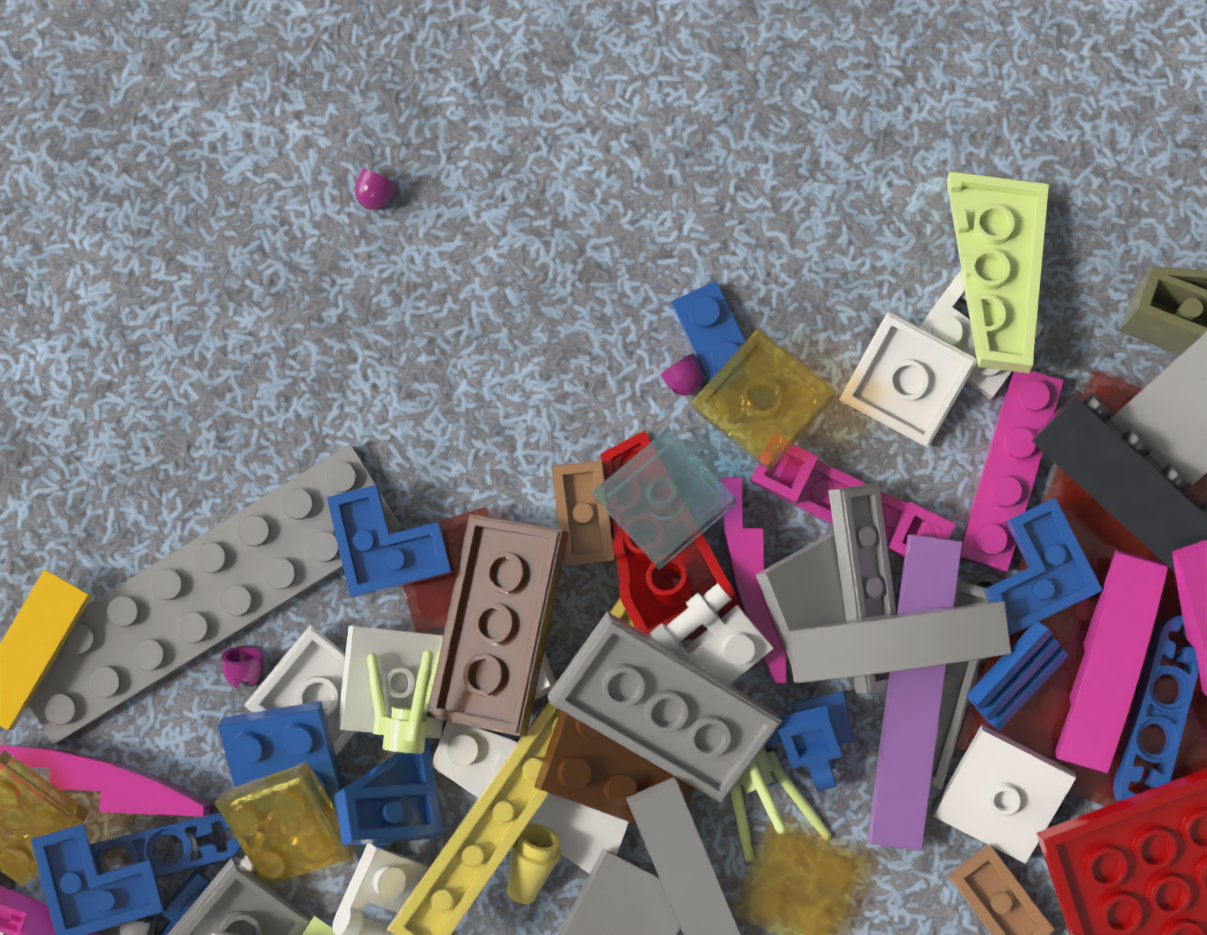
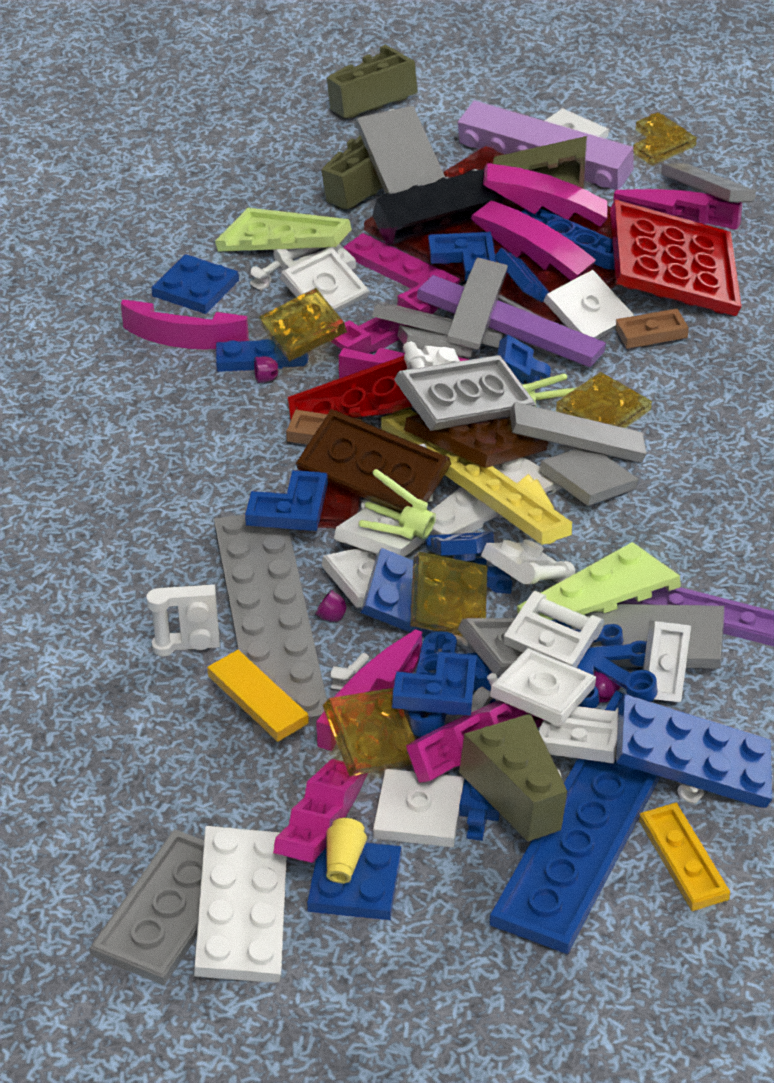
camera: 70 degrees left, 40 degrees down
(118, 510) = (196, 615): none -> white plate
(126, 734) = (343, 675): none -> white hand
(374, 190) = (55, 466): magenta hinge -> none
(664, 498) = (336, 379): clear light blue plate -> none
(736, 277) = (182, 330): none -> dark pink slope
(848, 186) = (195, 283): none -> blue plate
(897, 271) = (263, 275): none -> white hand

